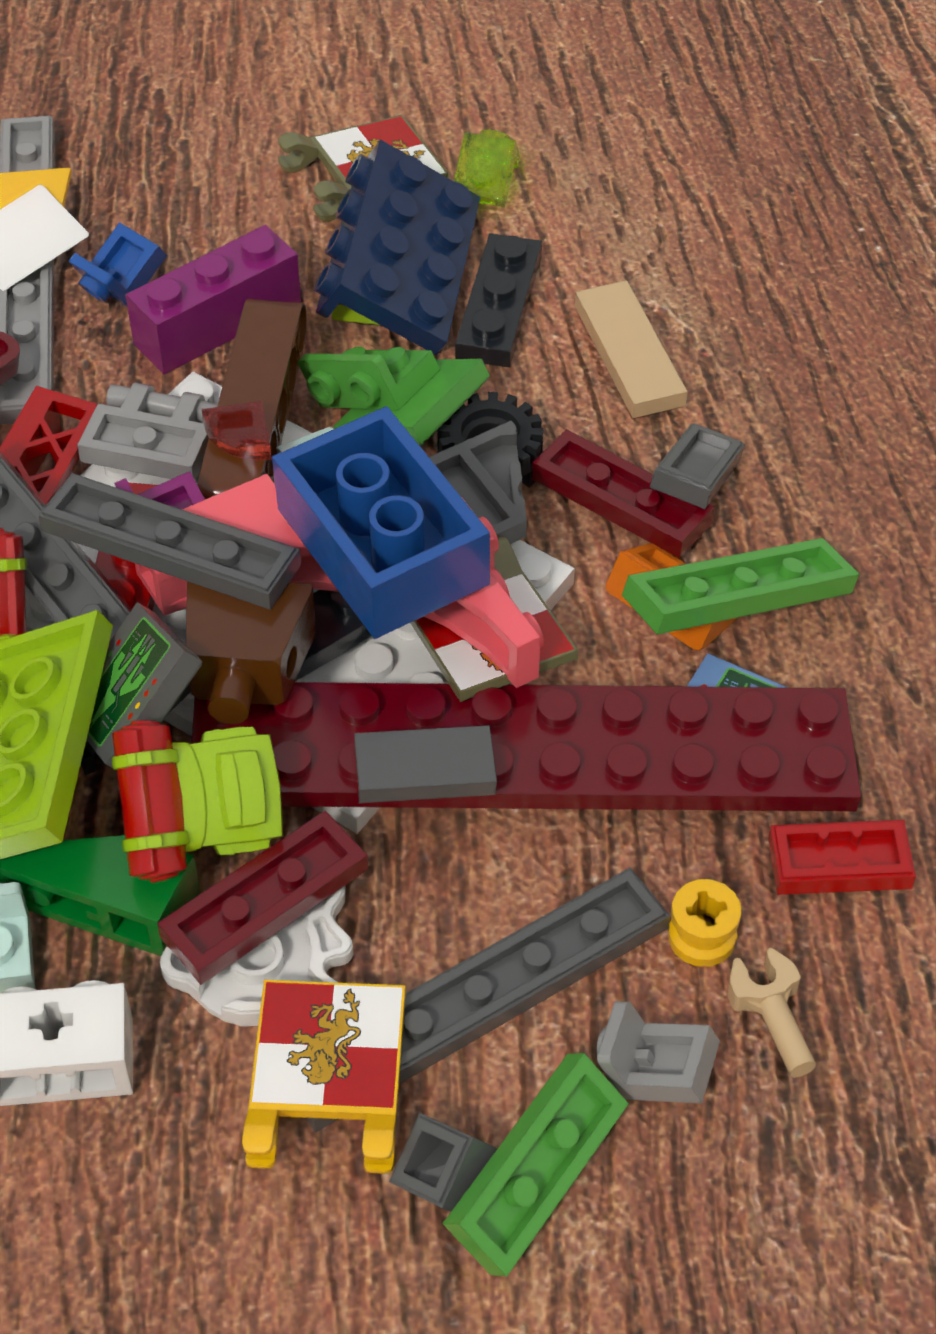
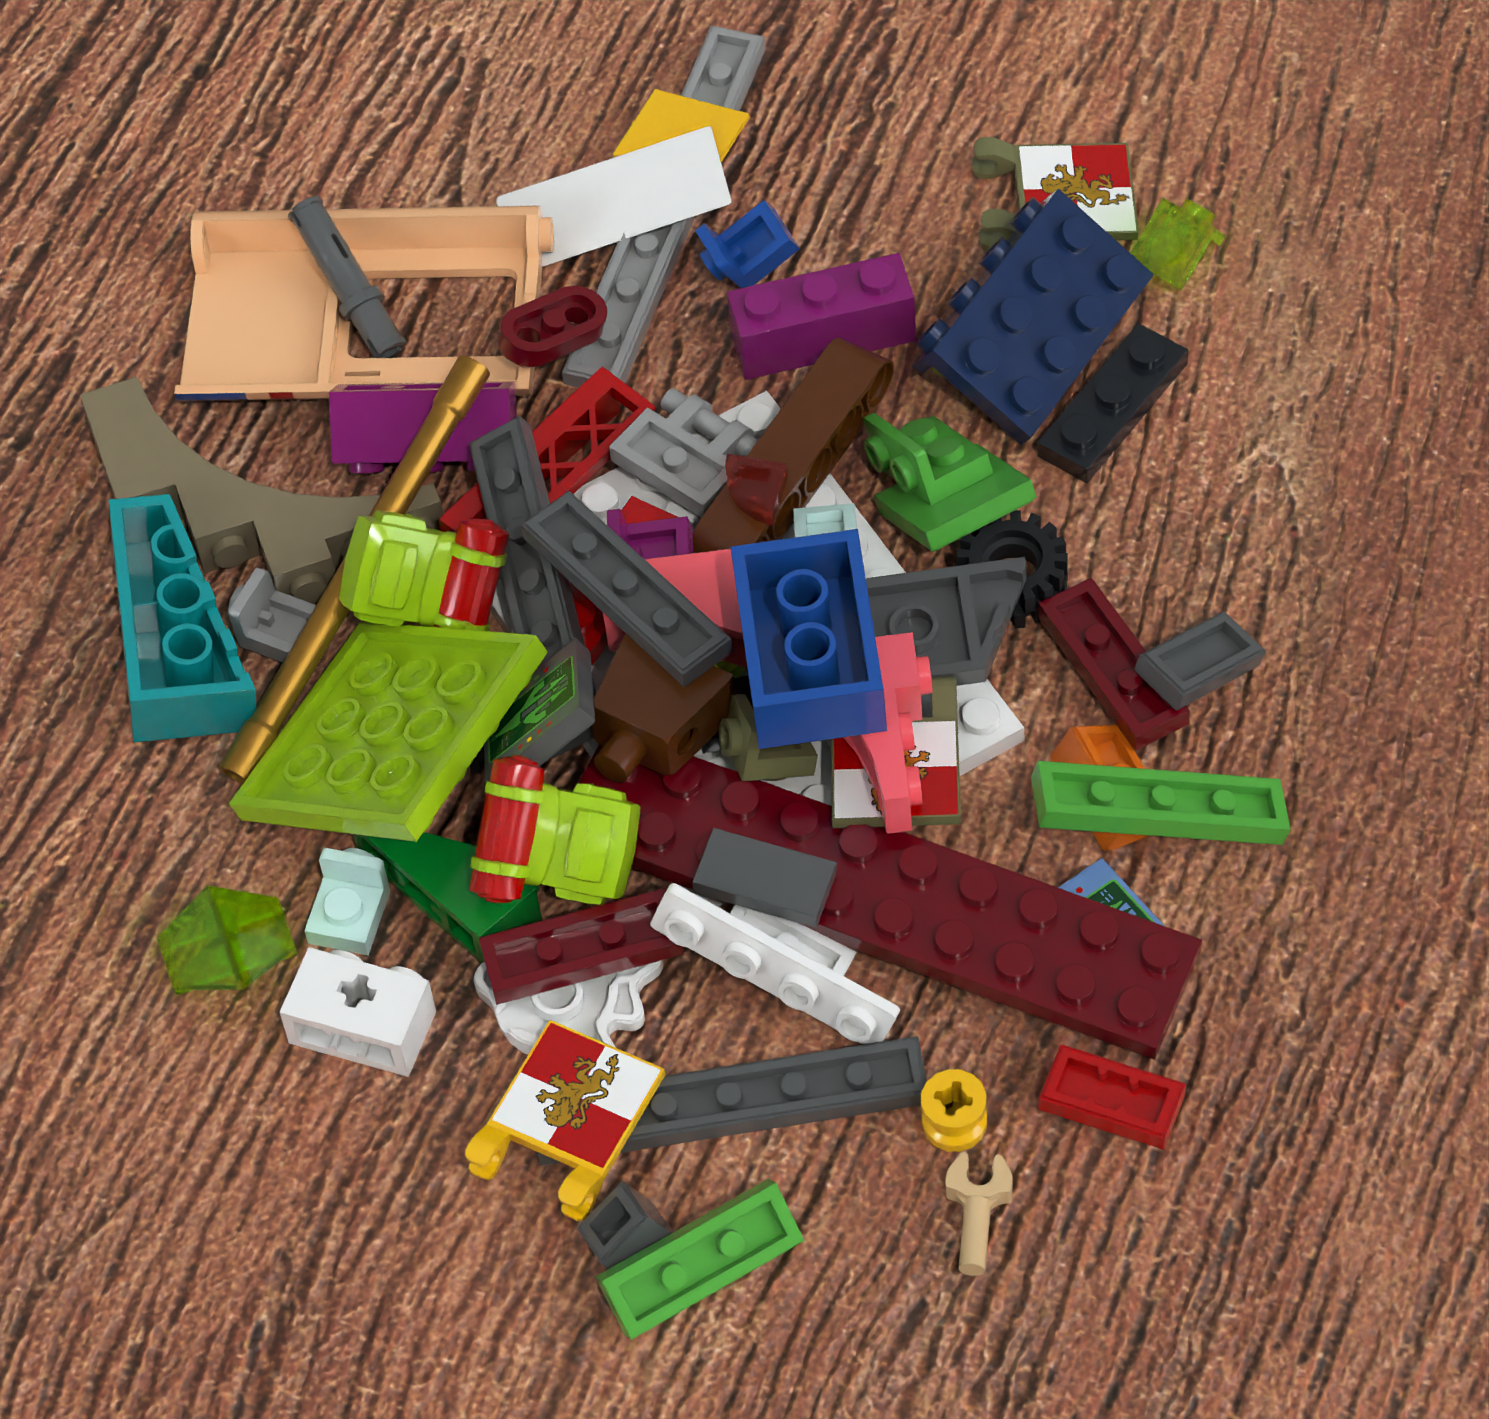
camera: 30 degrees right, 5 degrees up
(351, 653) = (740, 743): none -> olive bracket
(469, 841) = (781, 959): none -> white bracket
(630, 349) = (1214, 504): tan tile -> none
(656, 1058) = (842, 1209): light grey bracket -> none

